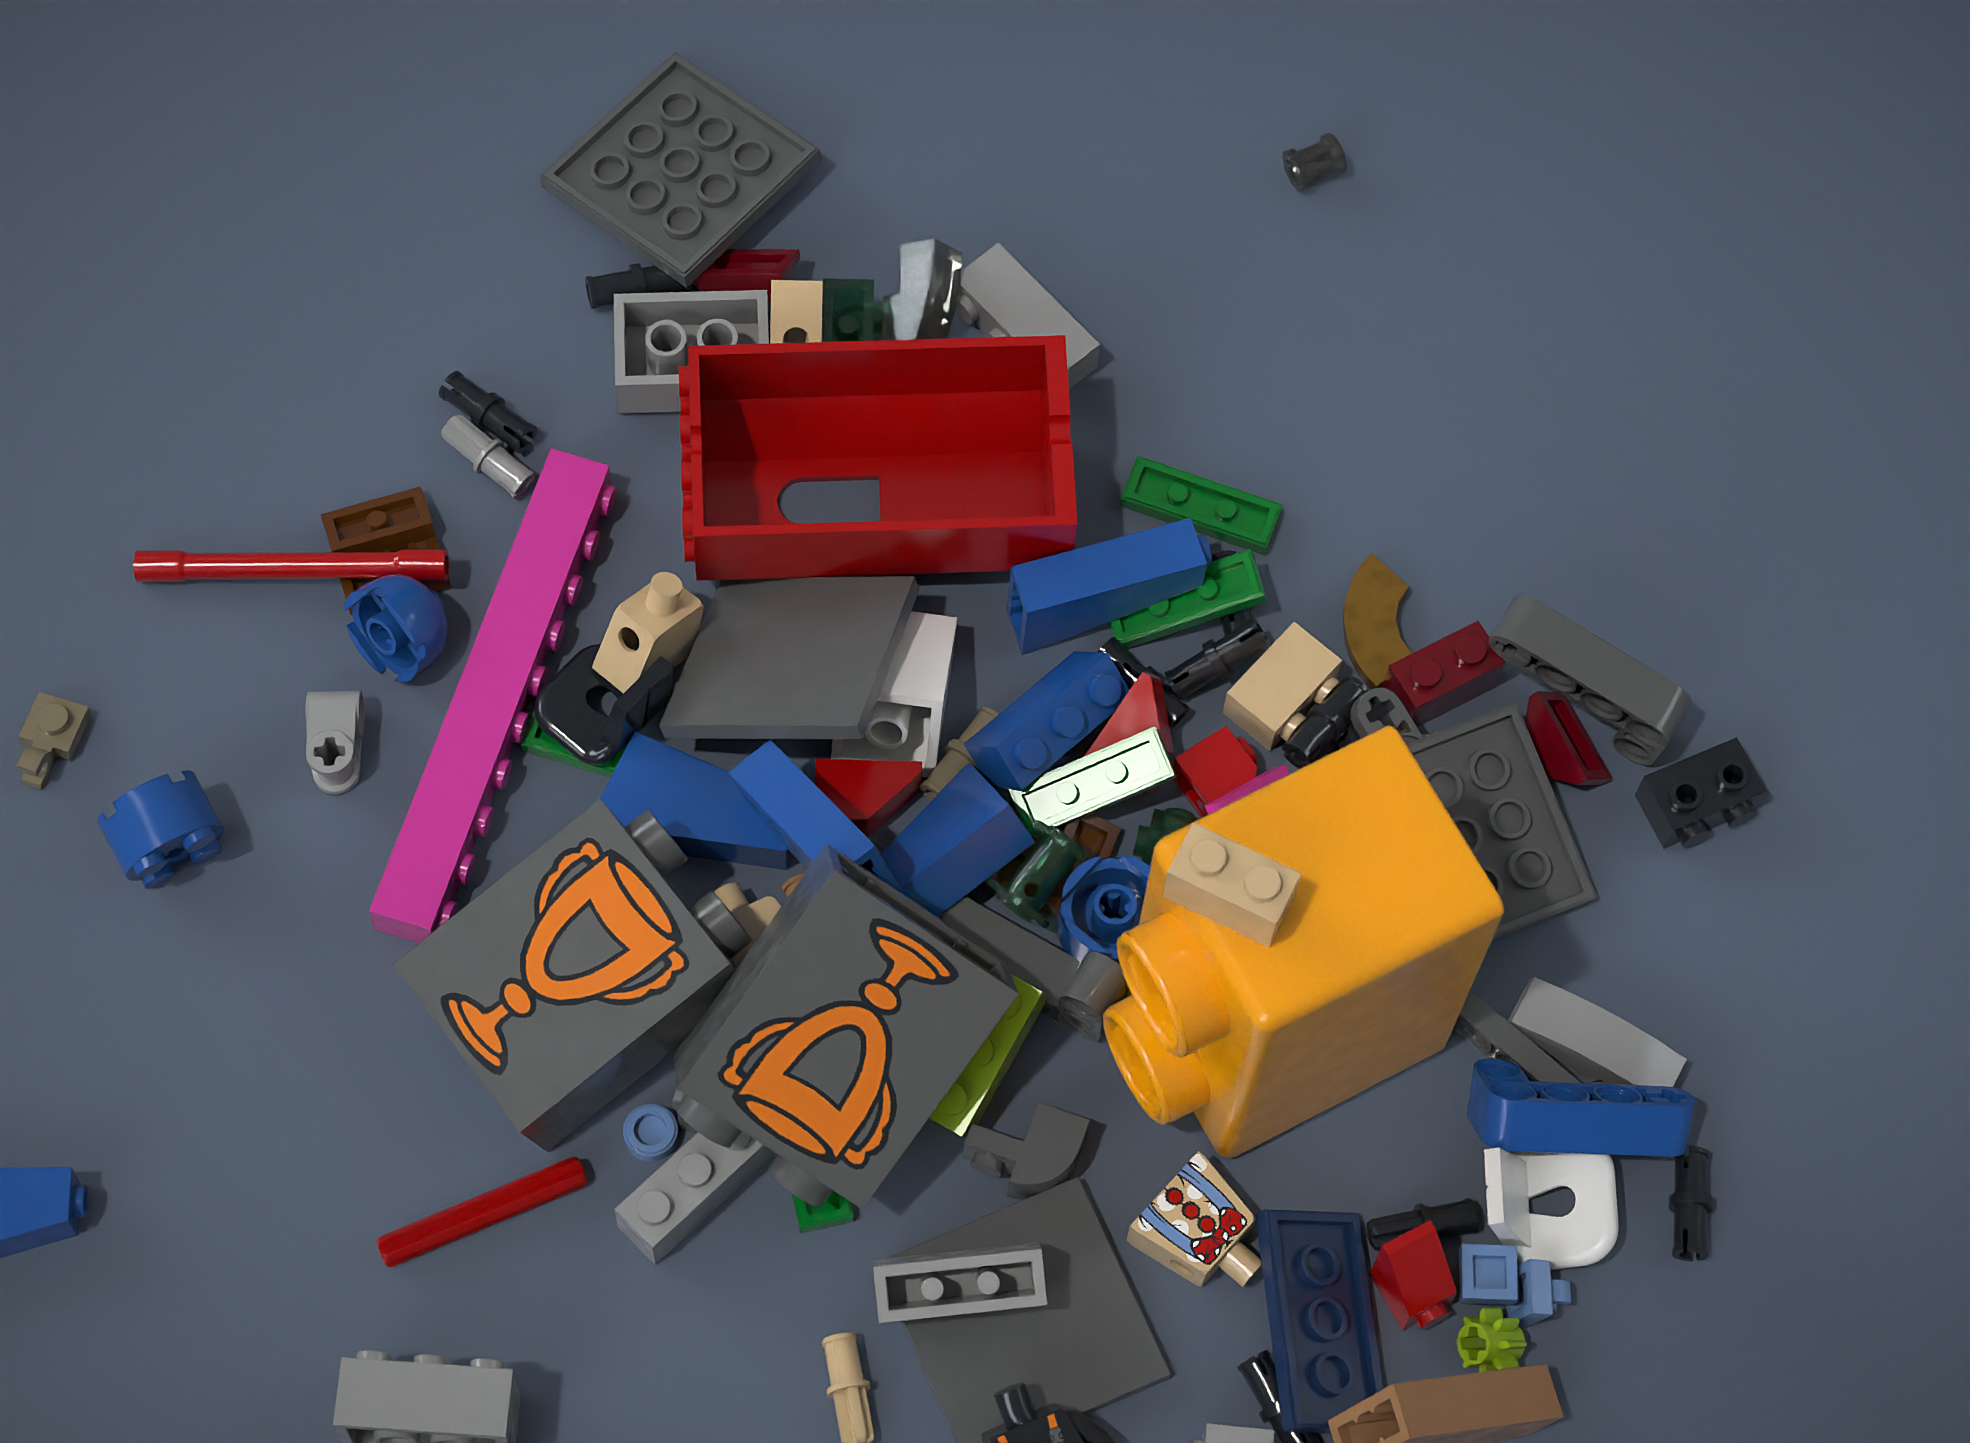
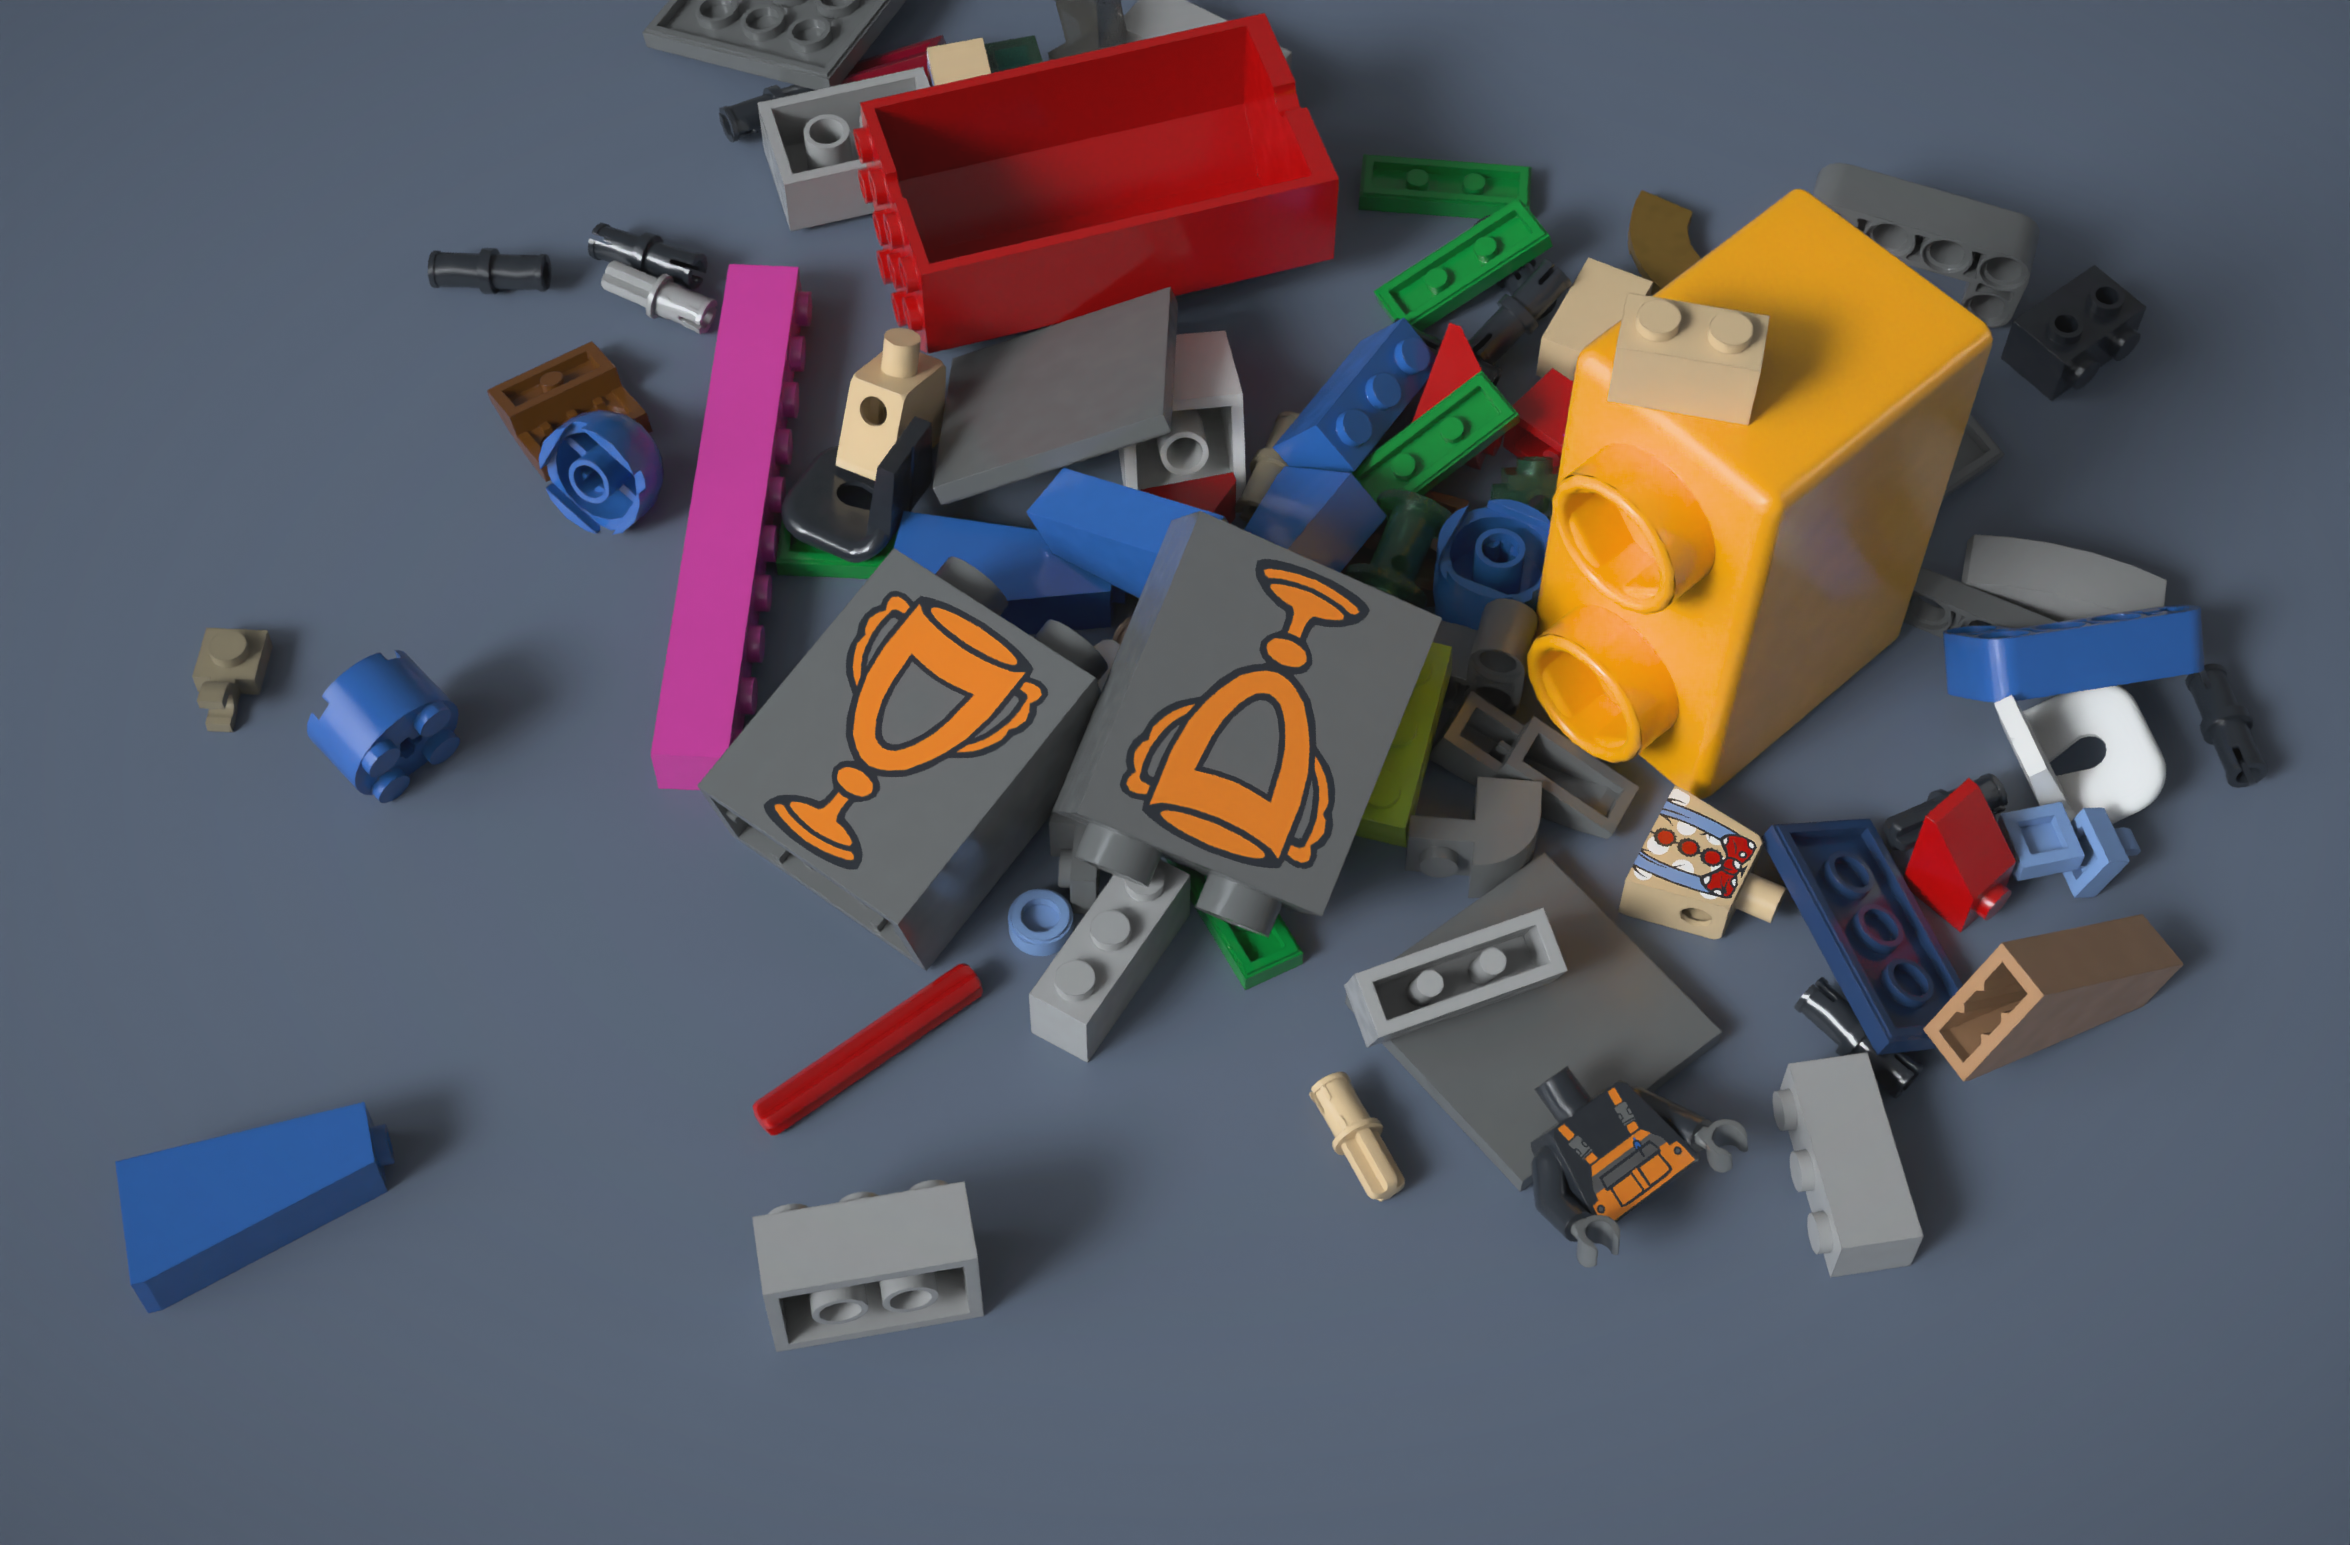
camera: 10 degrees left, 10 degrees down
(180, 565) = (342, 470): red piece -> none
(335, 733) = (562, 602): light grey piece -> none
(350, 394) = (489, 270): none -> black pin
(1092, 1090) = (1575, 785): none -> dark grey slope
(1103, 582) = (1369, 262): blue slope -> none
(1490, 1341) = (2066, 893): lime gear -> none

